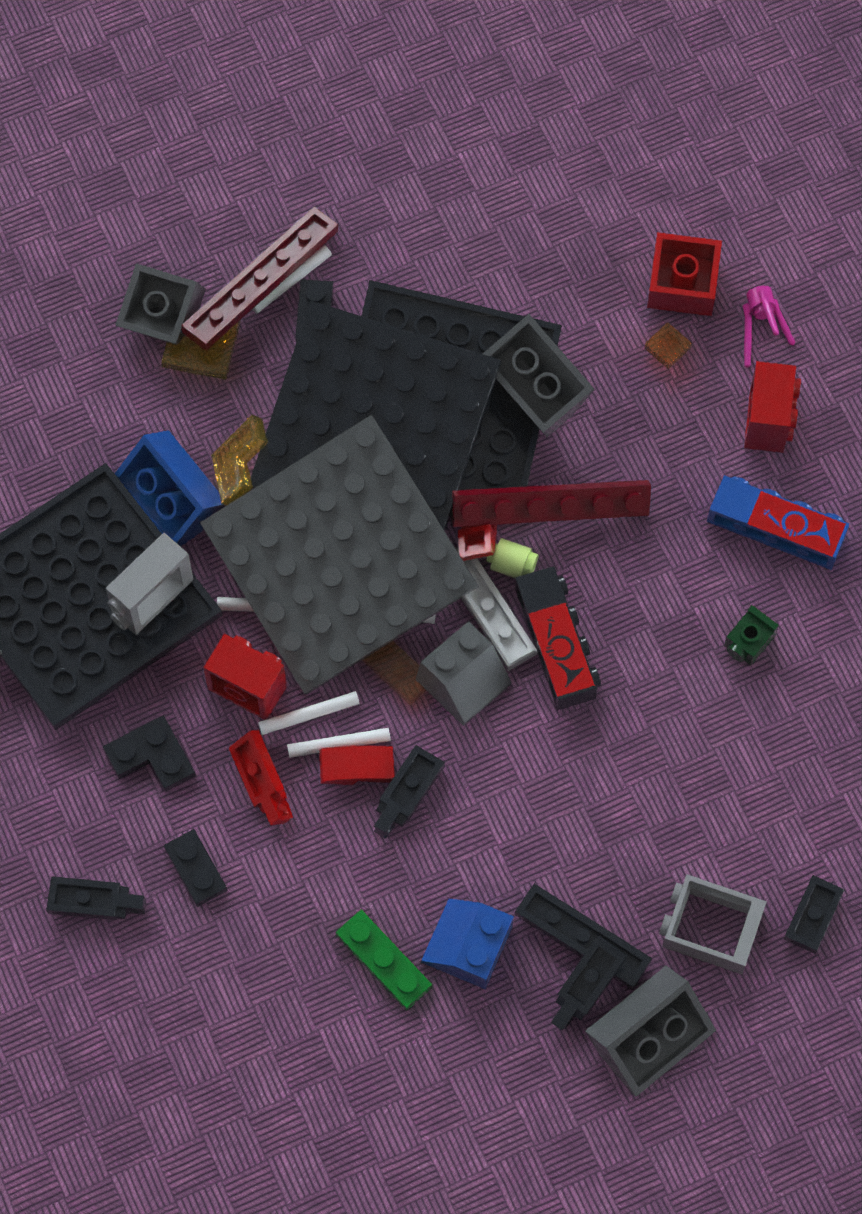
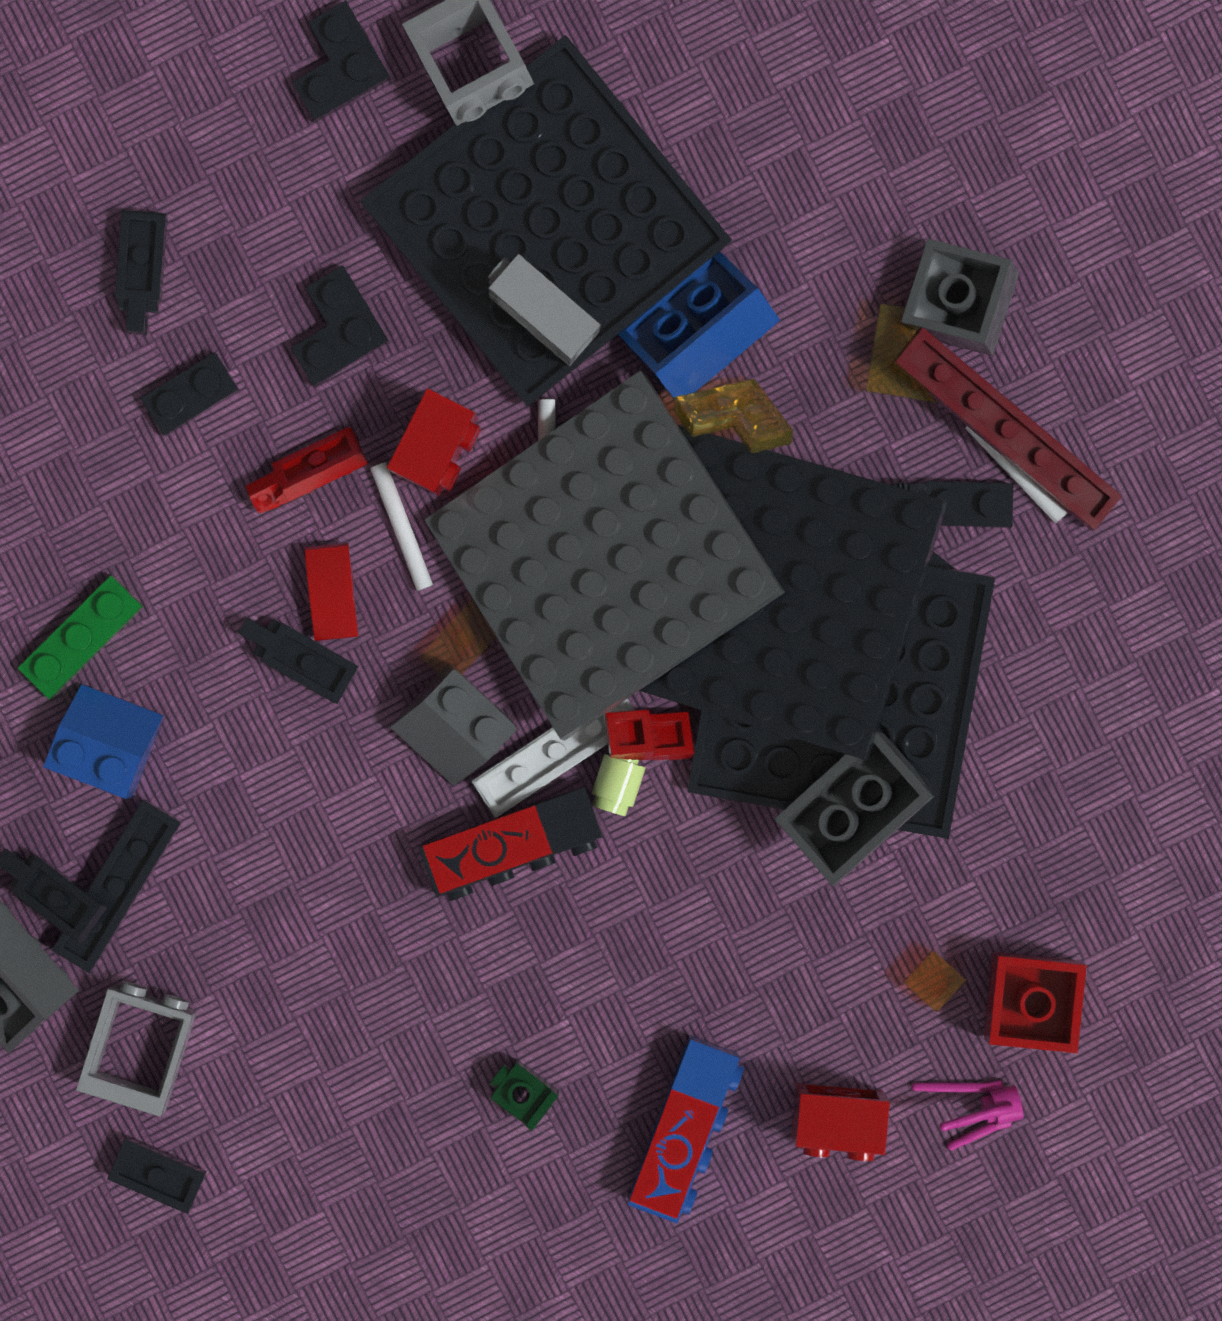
camera: 85 degrees right, 20 degrees up
(354, 739) = (363, 567): white bar -> none
(550, 503) = (690, 830): dark red plate -> none

